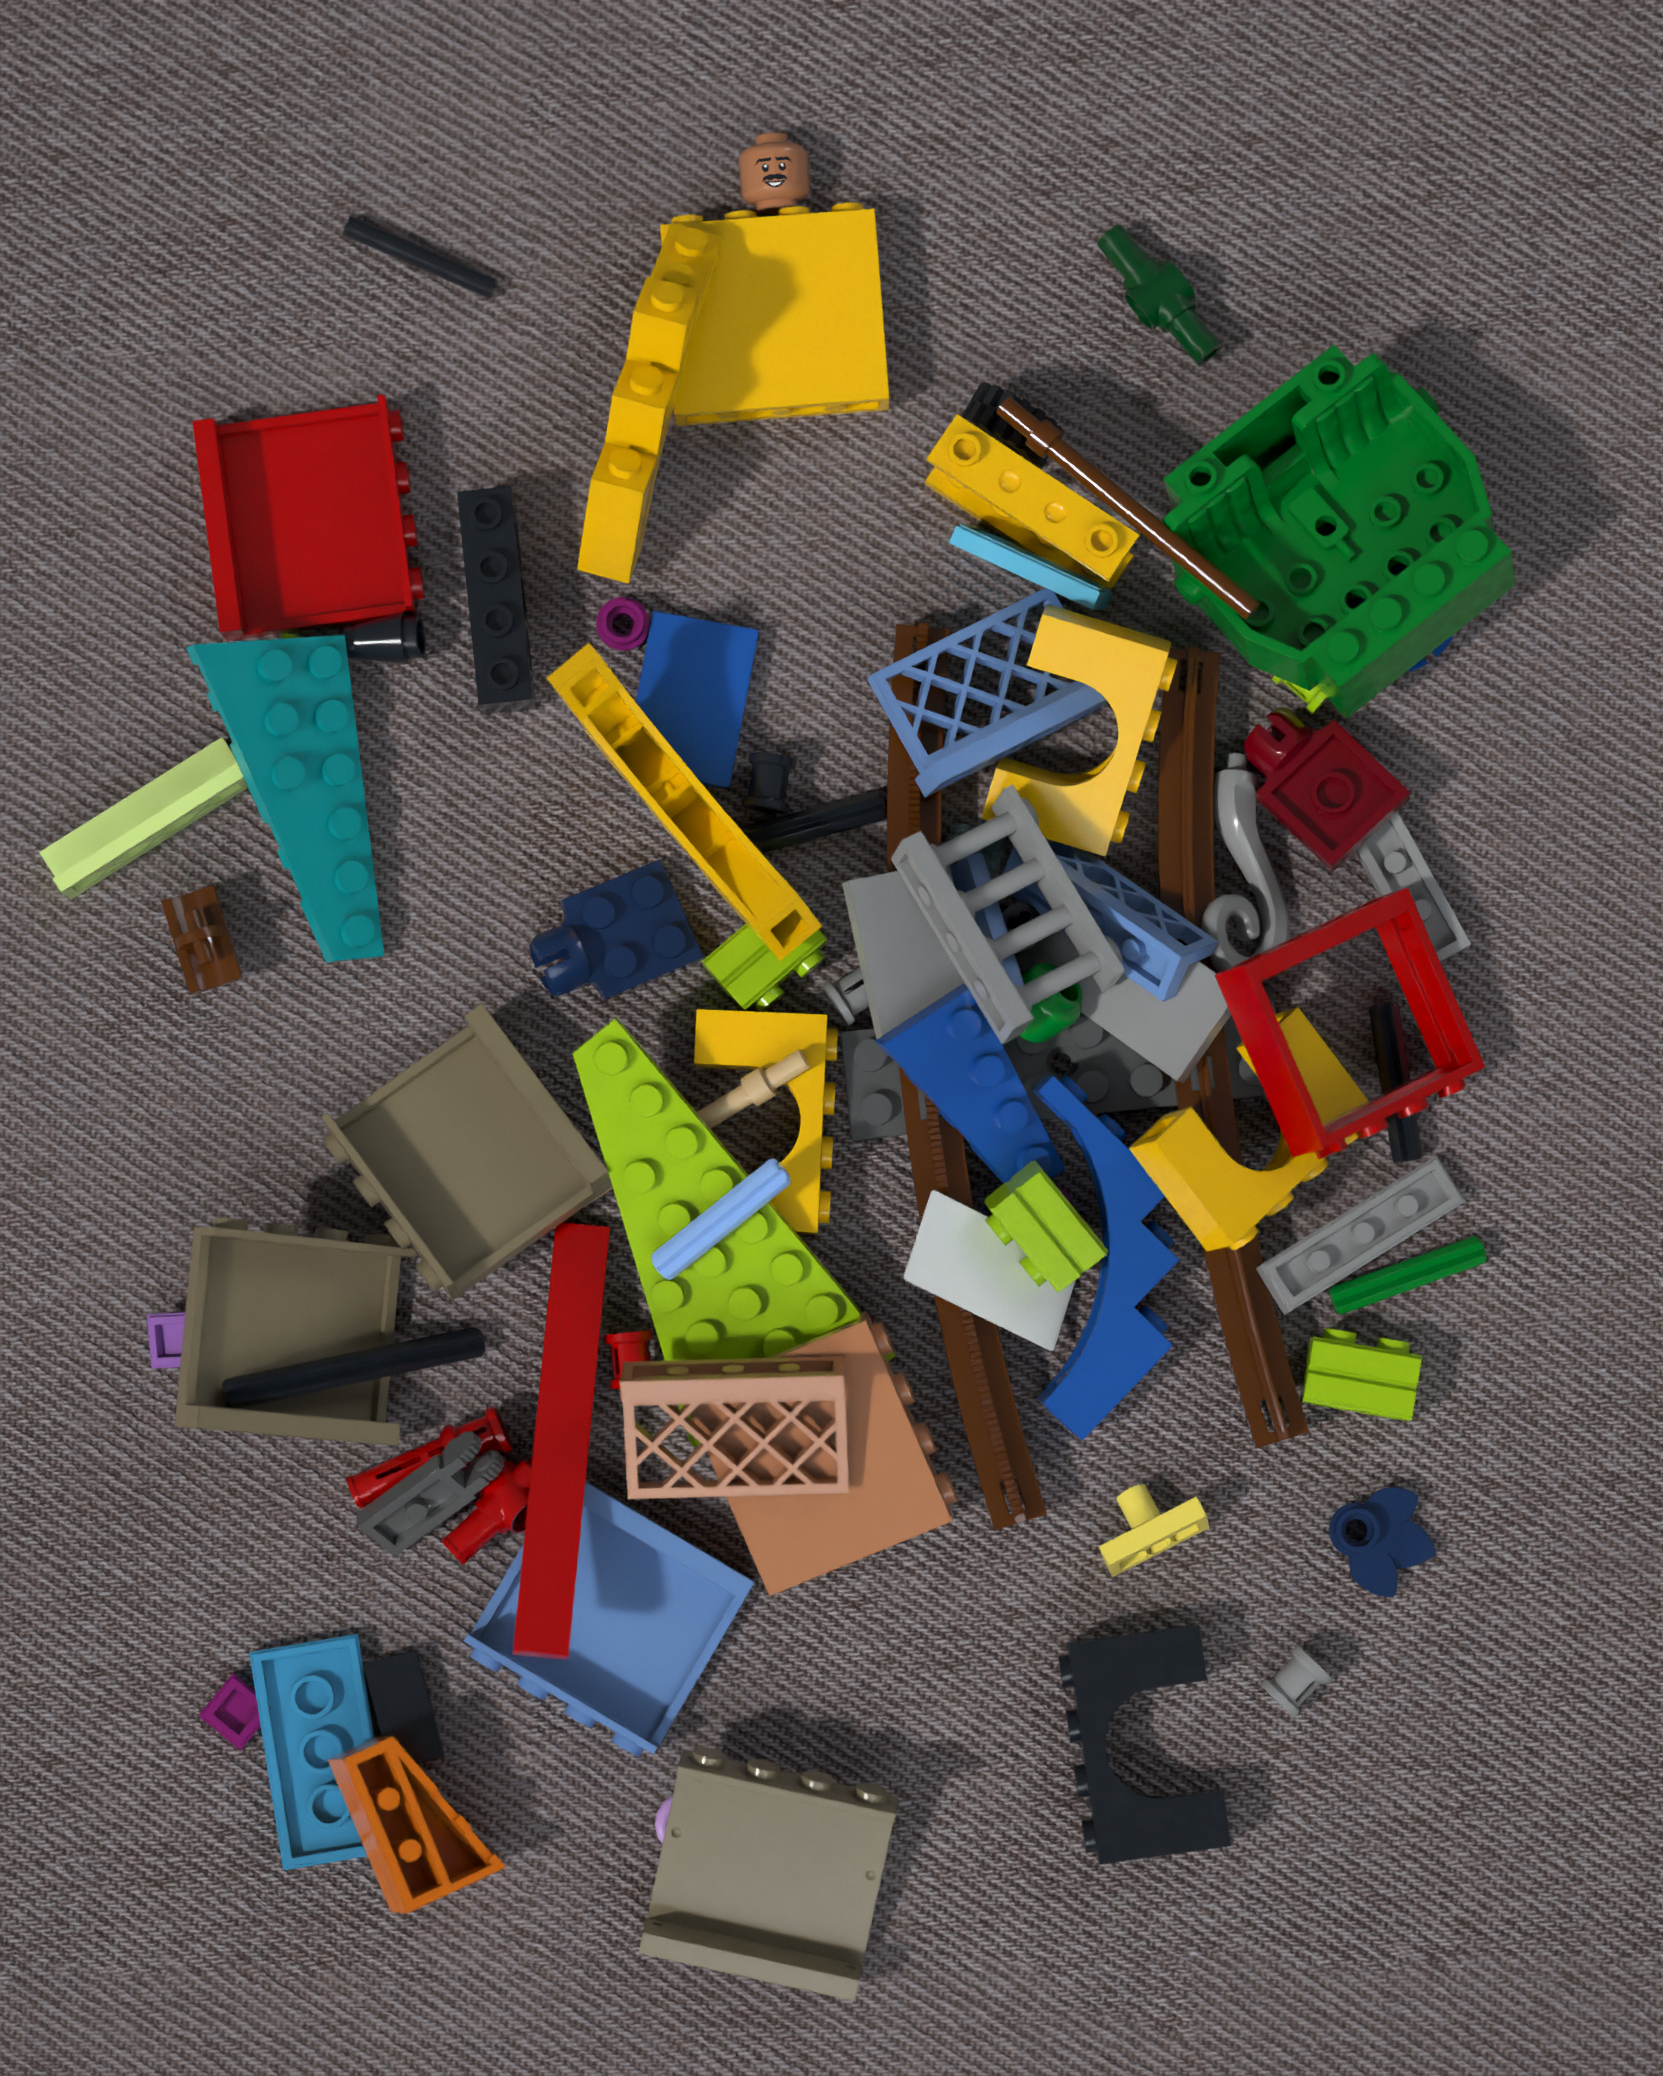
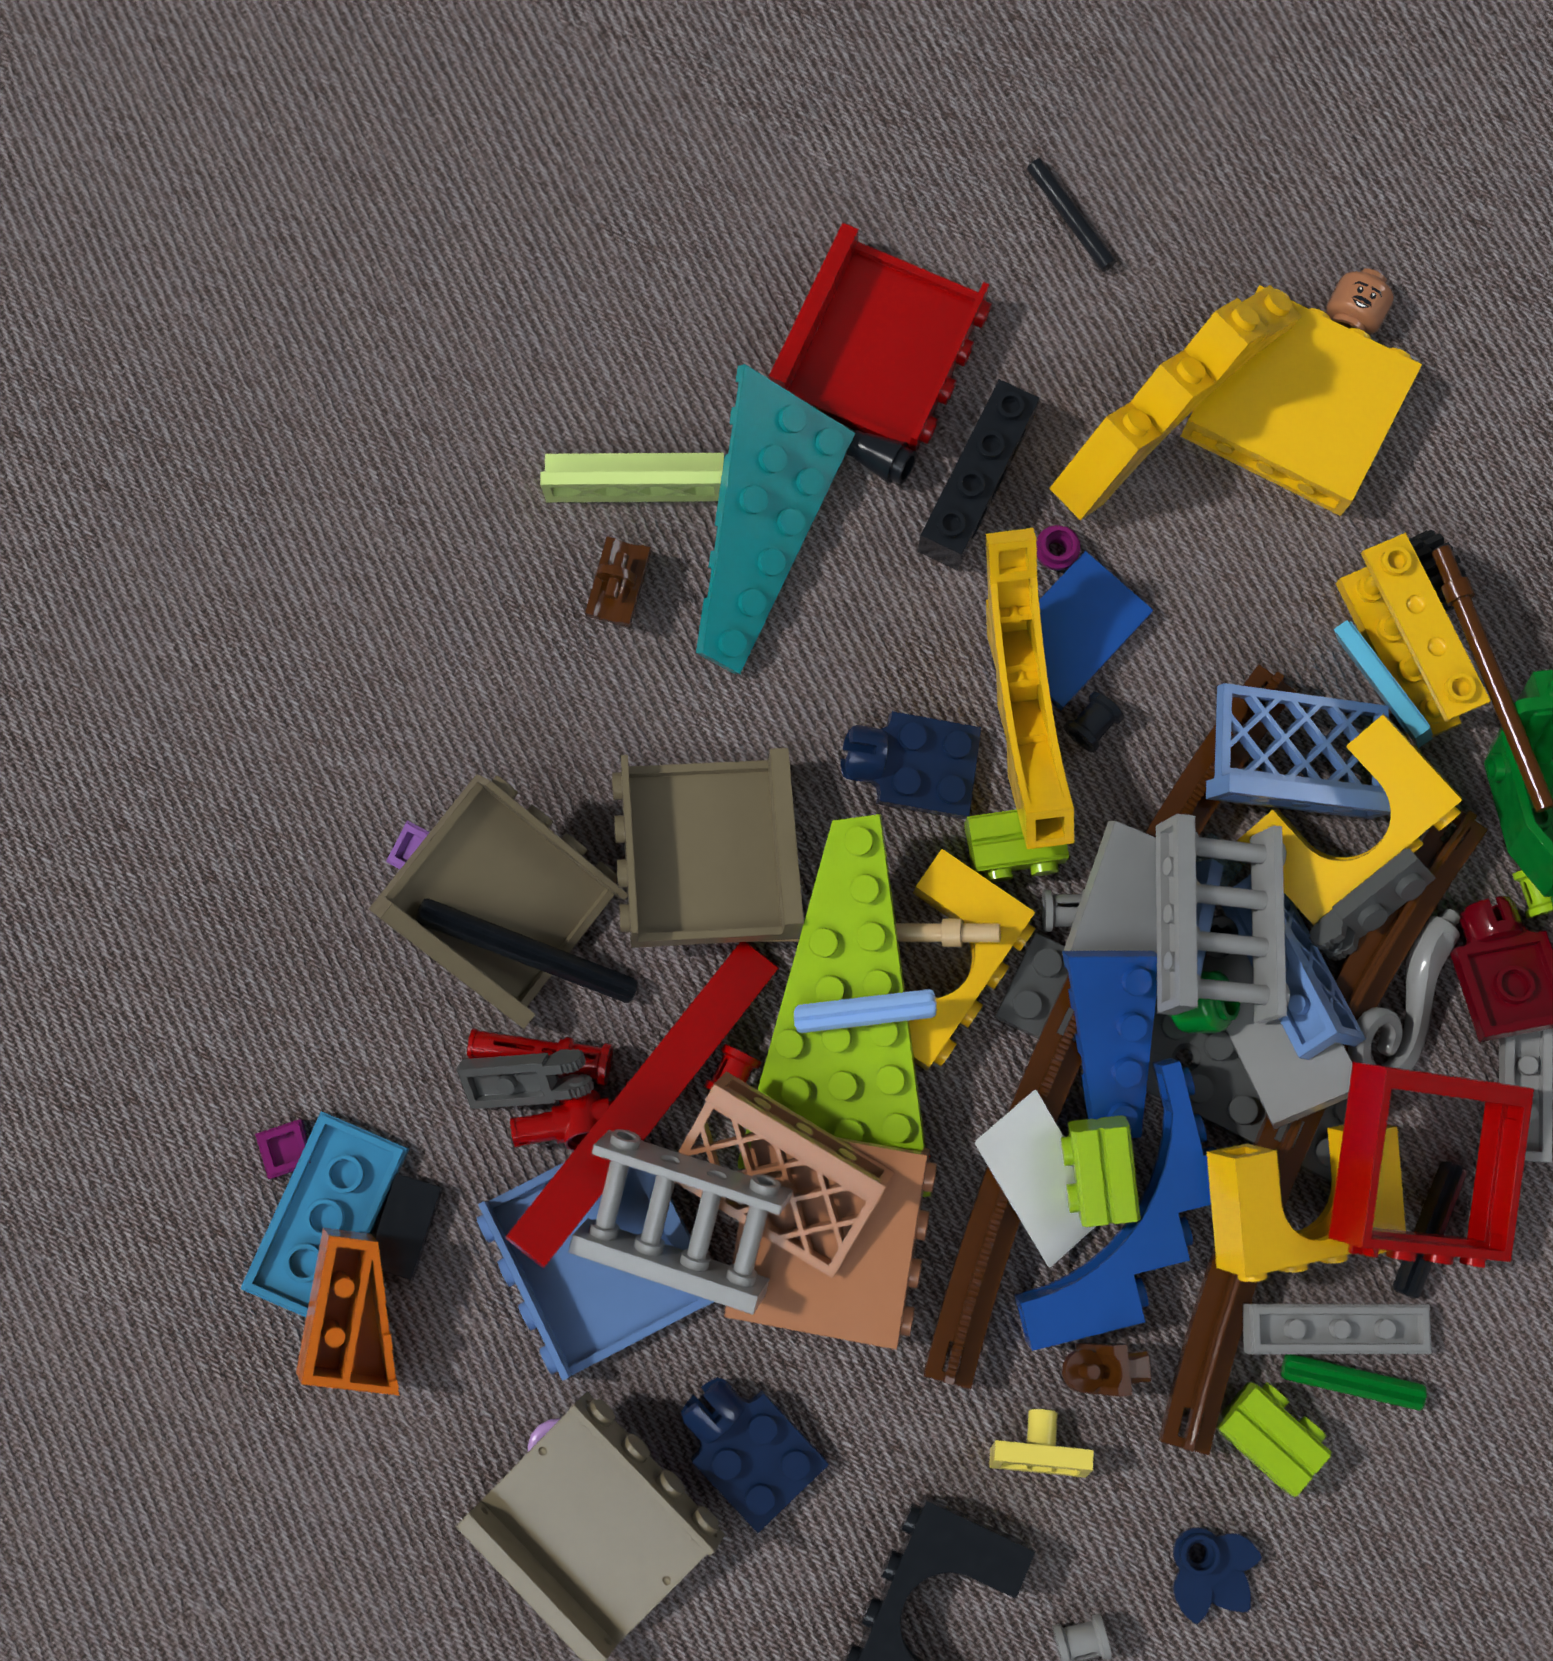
camera: 30 degrees right, 5 degrees down
(657, 1581) = (648, 1254): none -> light grey fence
(817, 822) = (1115, 772): black axle -> none
(875, 1706) = (750, 1451): none -> dark blue plate
(1147, 803) = (1370, 905): none -> dark grey hinge
(1160, 1414) = (1105, 1369): none -> reddish brown hips

